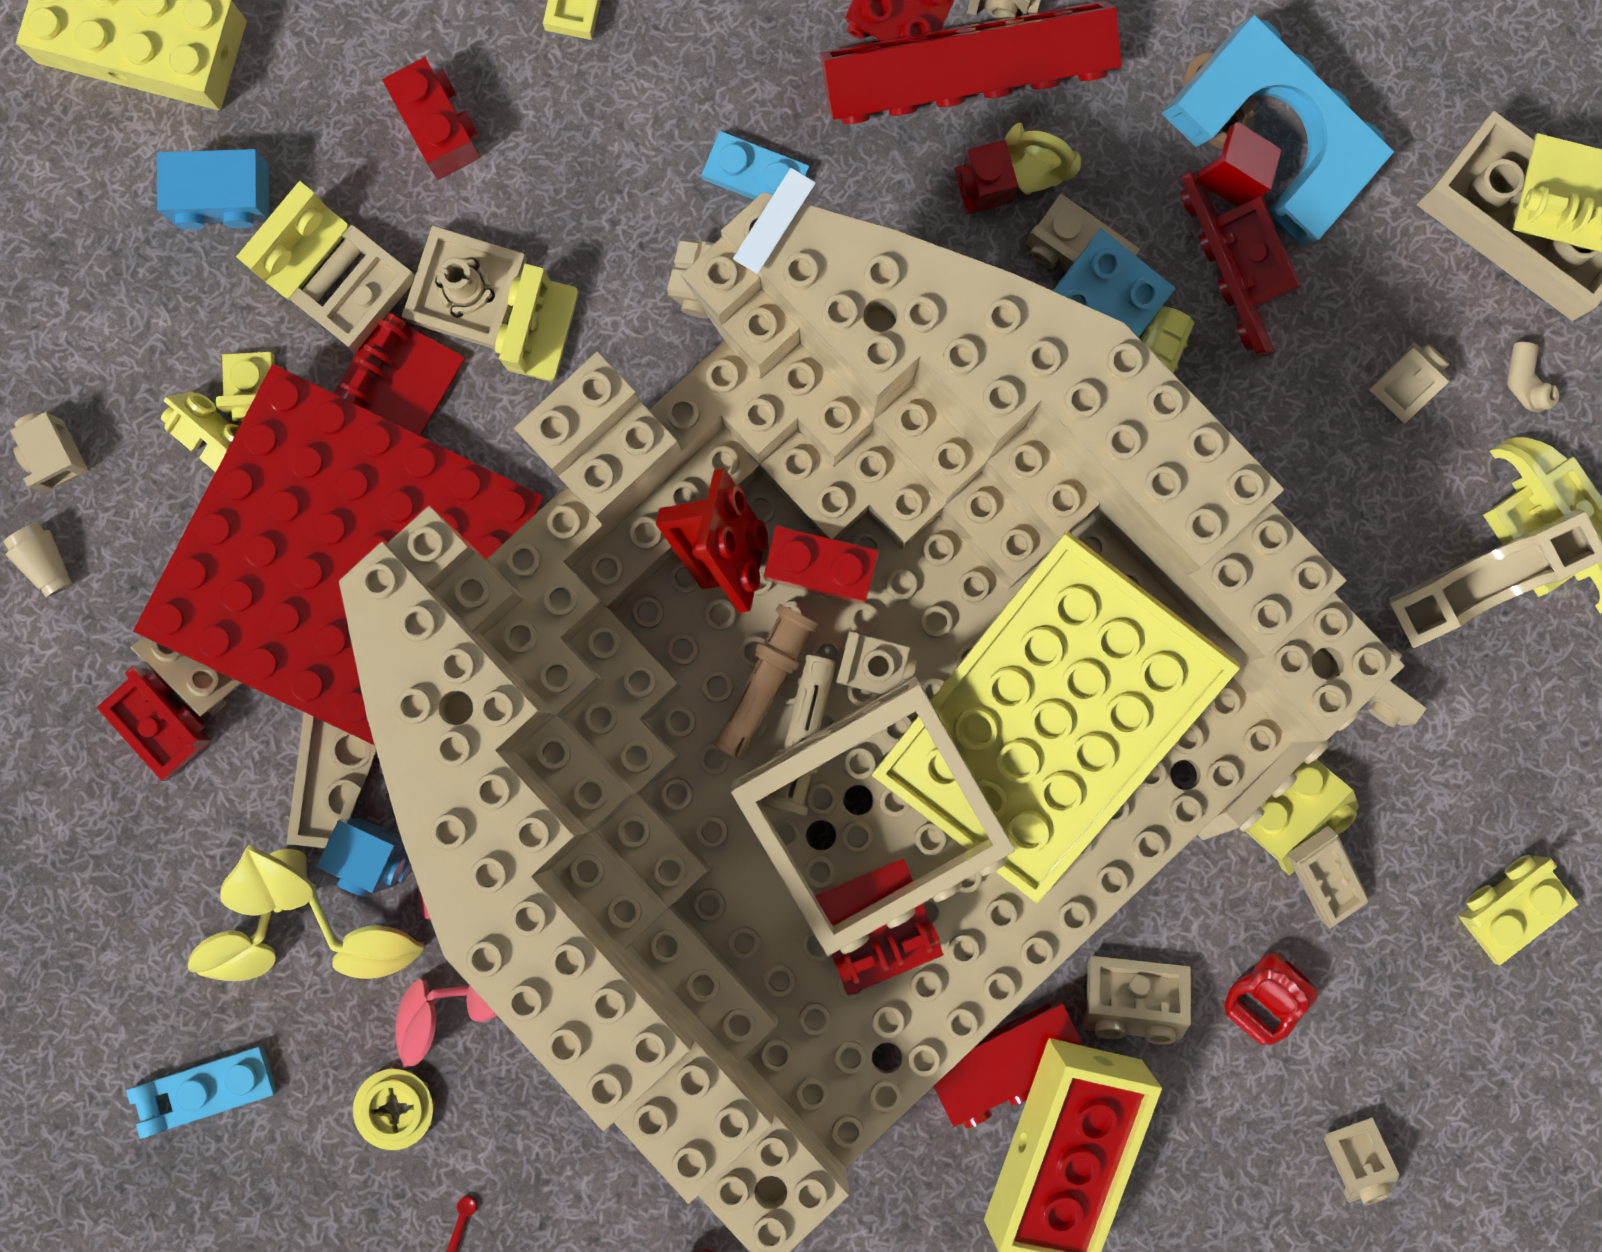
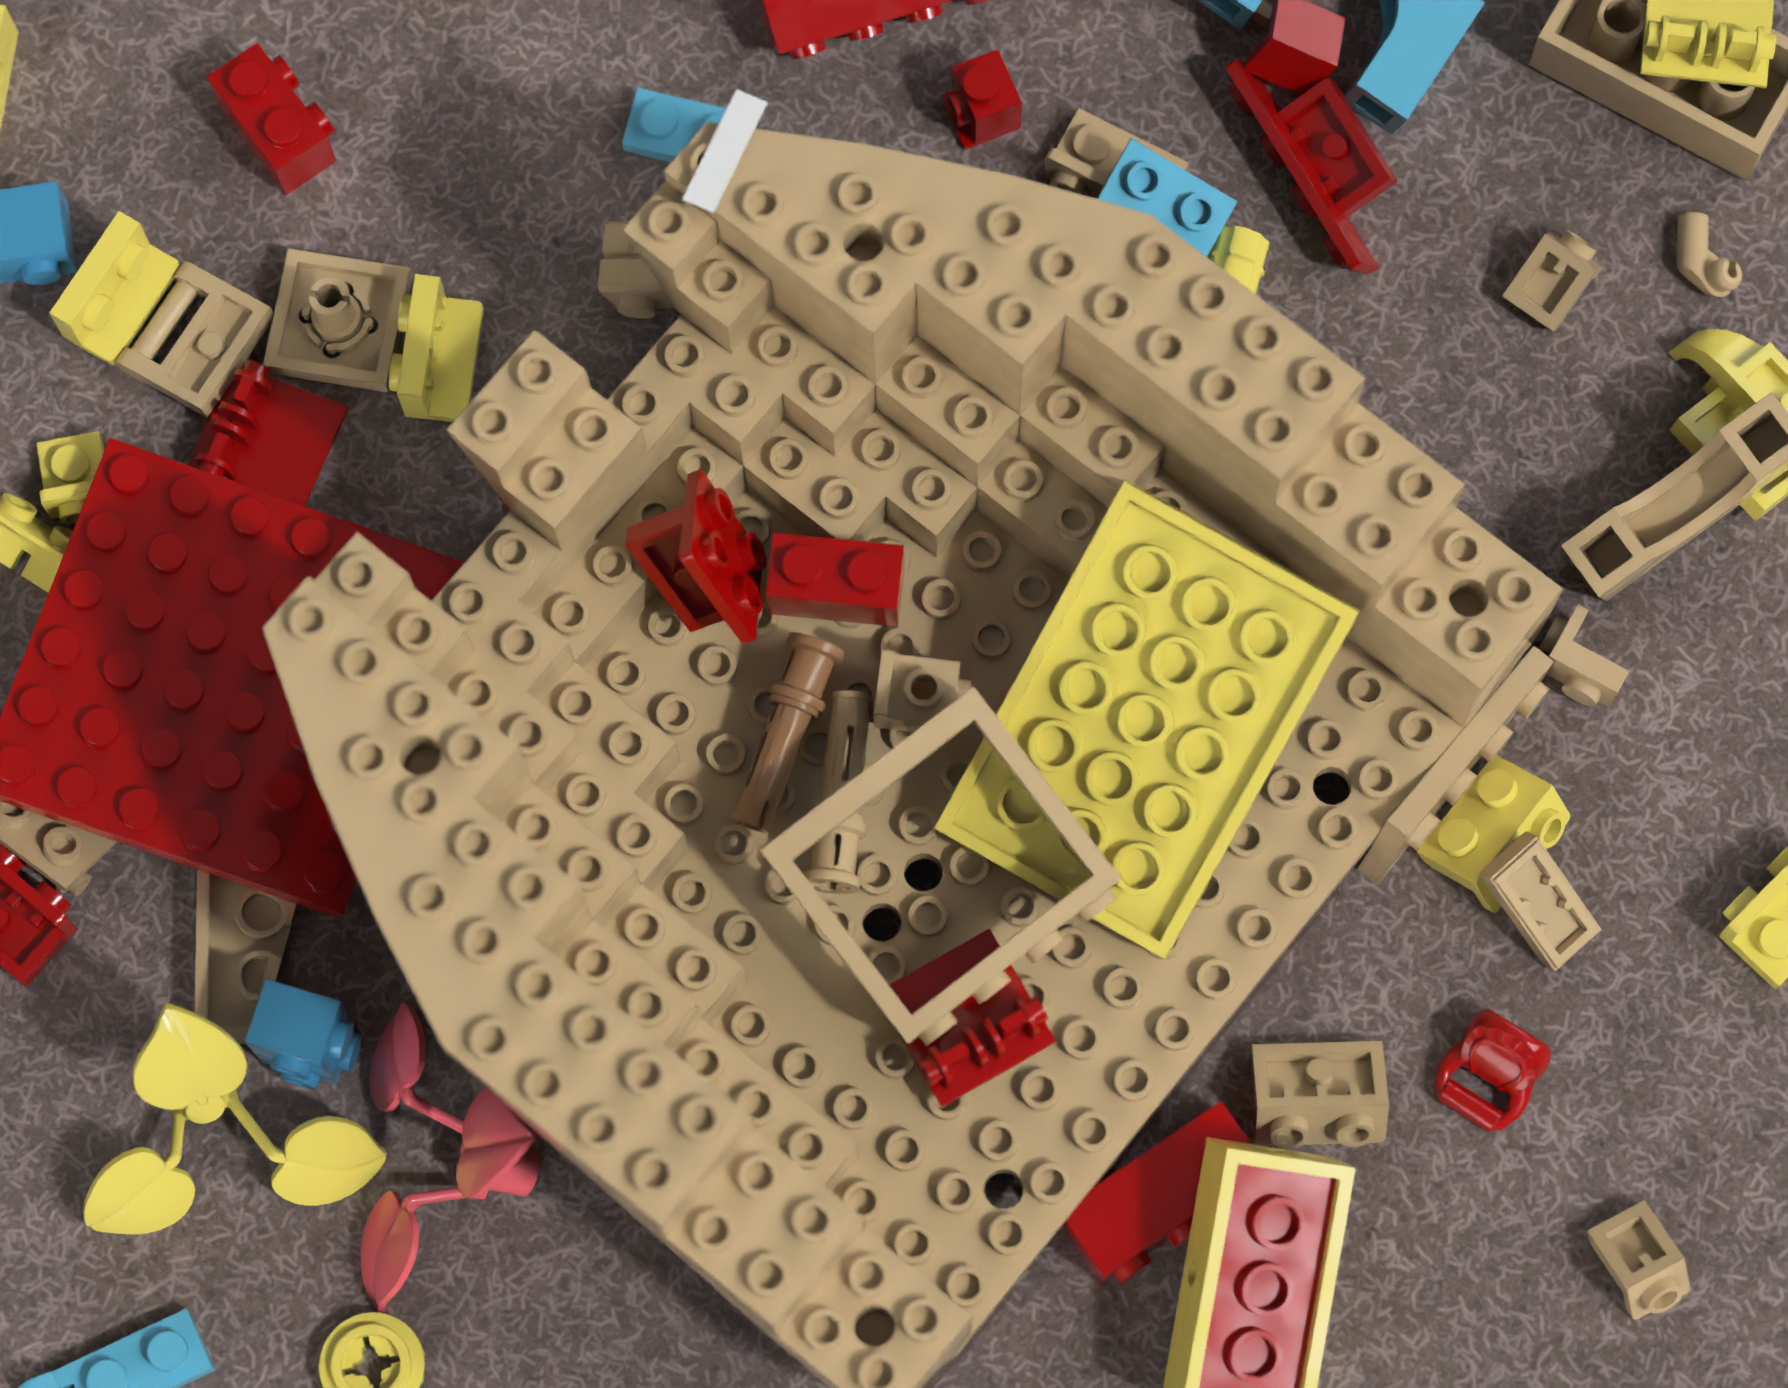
camera: 10 degrees left, 10 degrees down
(1037, 166) = (1046, 80): light yellow piece -> none

